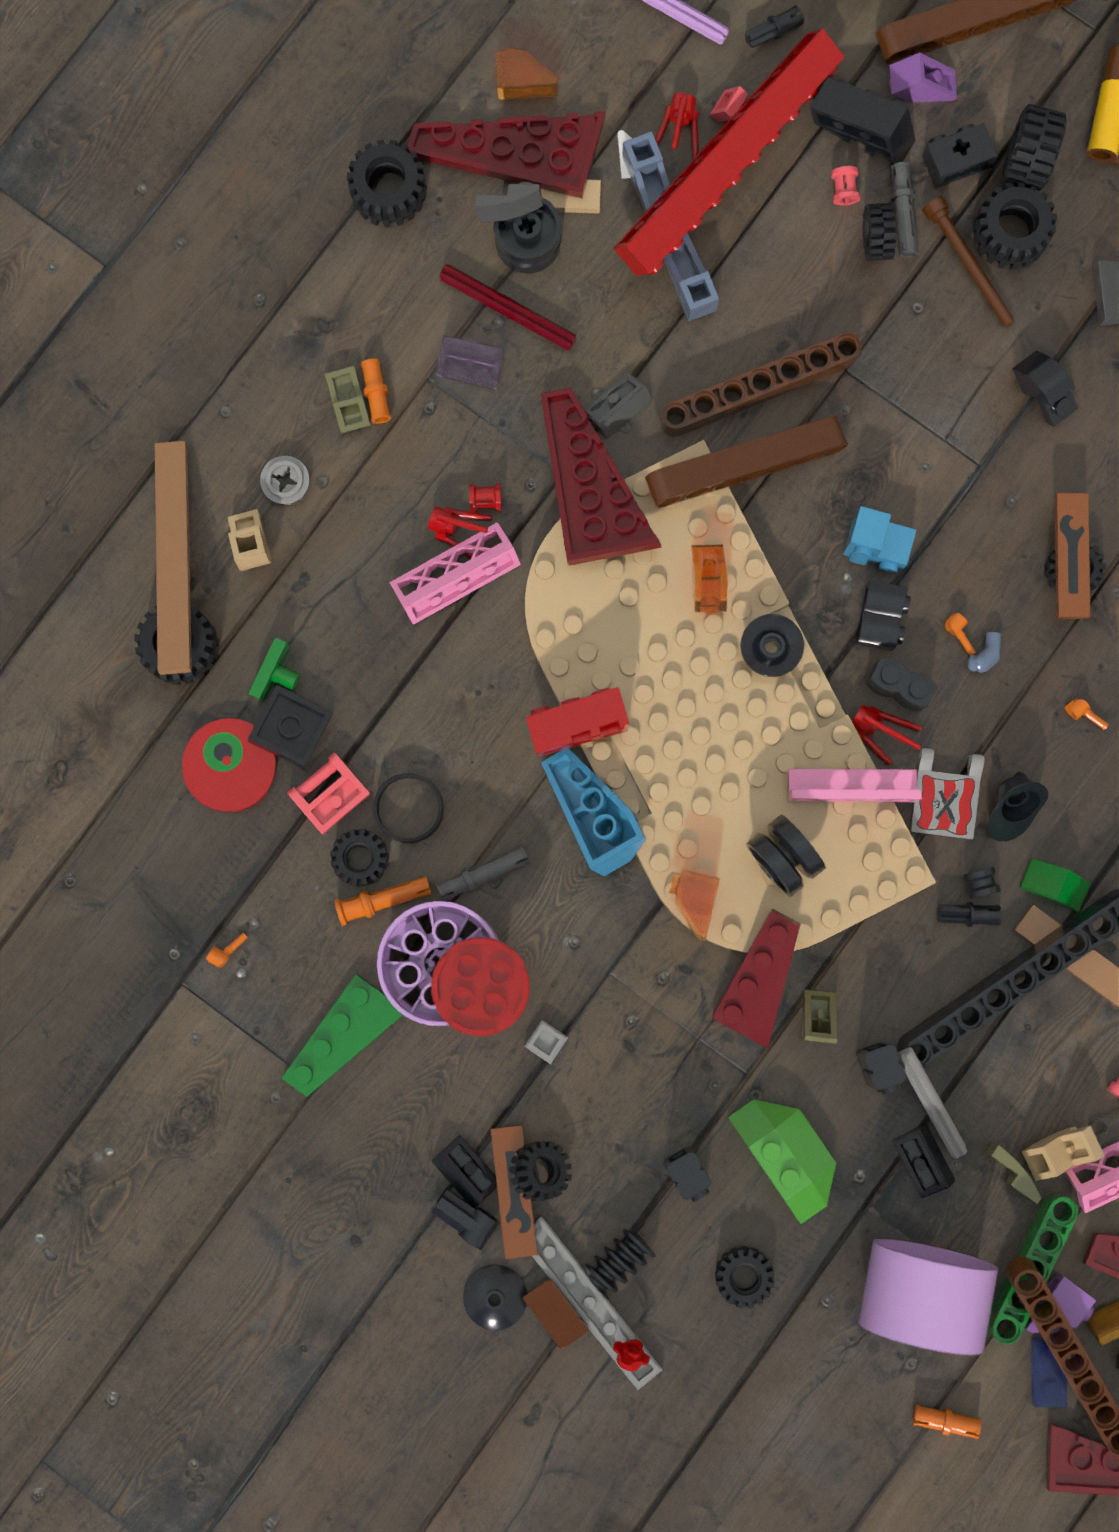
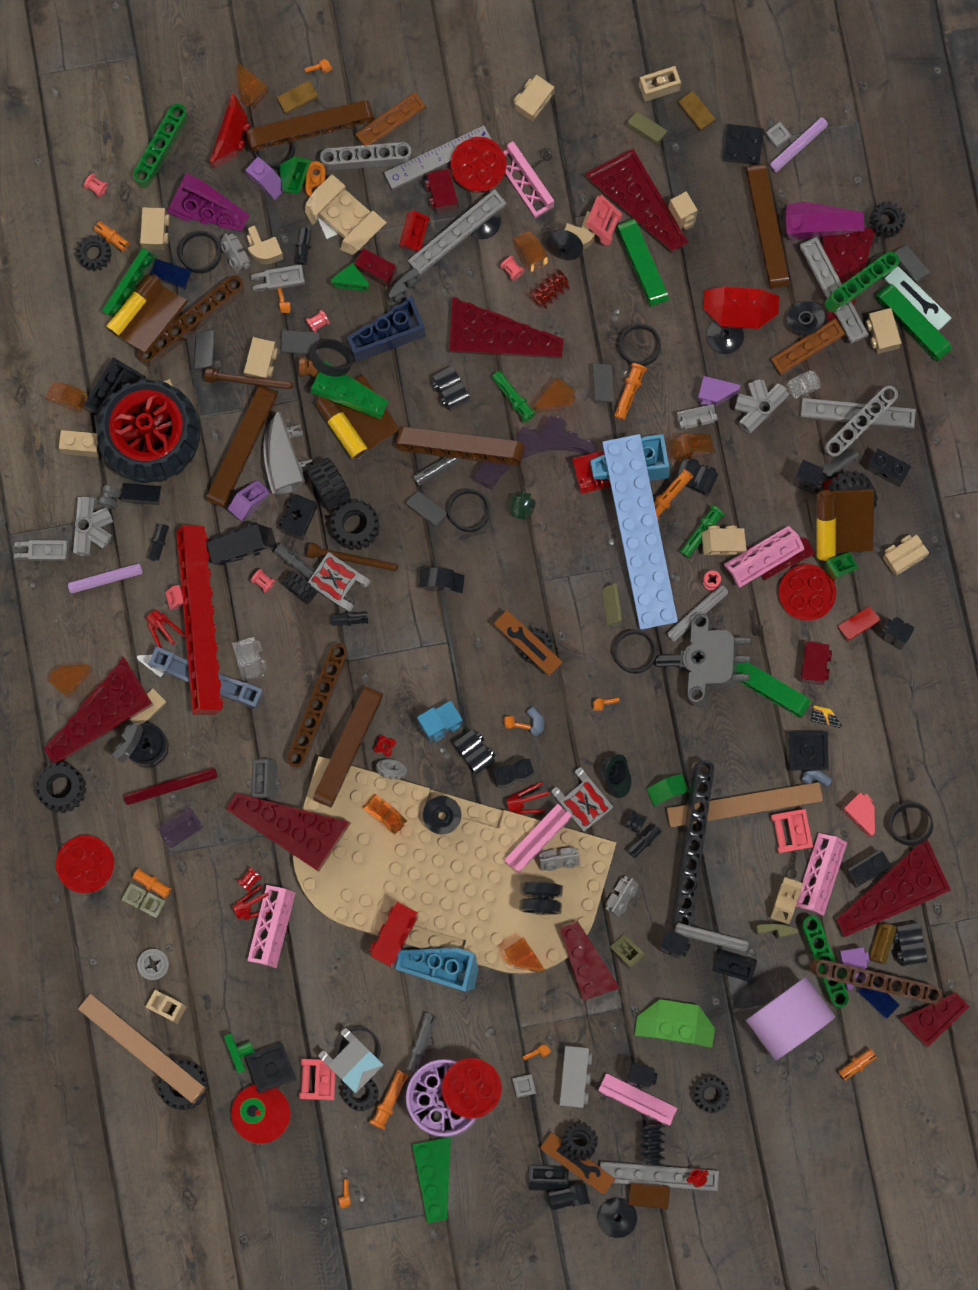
camera: 50 degrees left, 5 degrees down
(327, 297) = (85, 864): none -> red tile
(384, 818) = (354, 1064): none -> light grey flag
(609, 1025) = (543, 1050): none -> orange hand
(612, 1094) = (575, 1077): none -> light grey brick
(655, 1193) = (637, 1099): none -> bright pink fence
(739, 255) = (249, 659): none -> clear brick
(769, 538) = (391, 769): none -> light grey gear
(793, 498) = (389, 742): none -> red plate
(840, 826) = (550, 861): none -> light grey hinge
(892, 946) = (627, 889): none -> light grey hinge
(896, 324) = (349, 618): none -> black axle
(927, 264) = (334, 580): none -> flag
(1005, 70) = (280, 460): none -> light grey piece

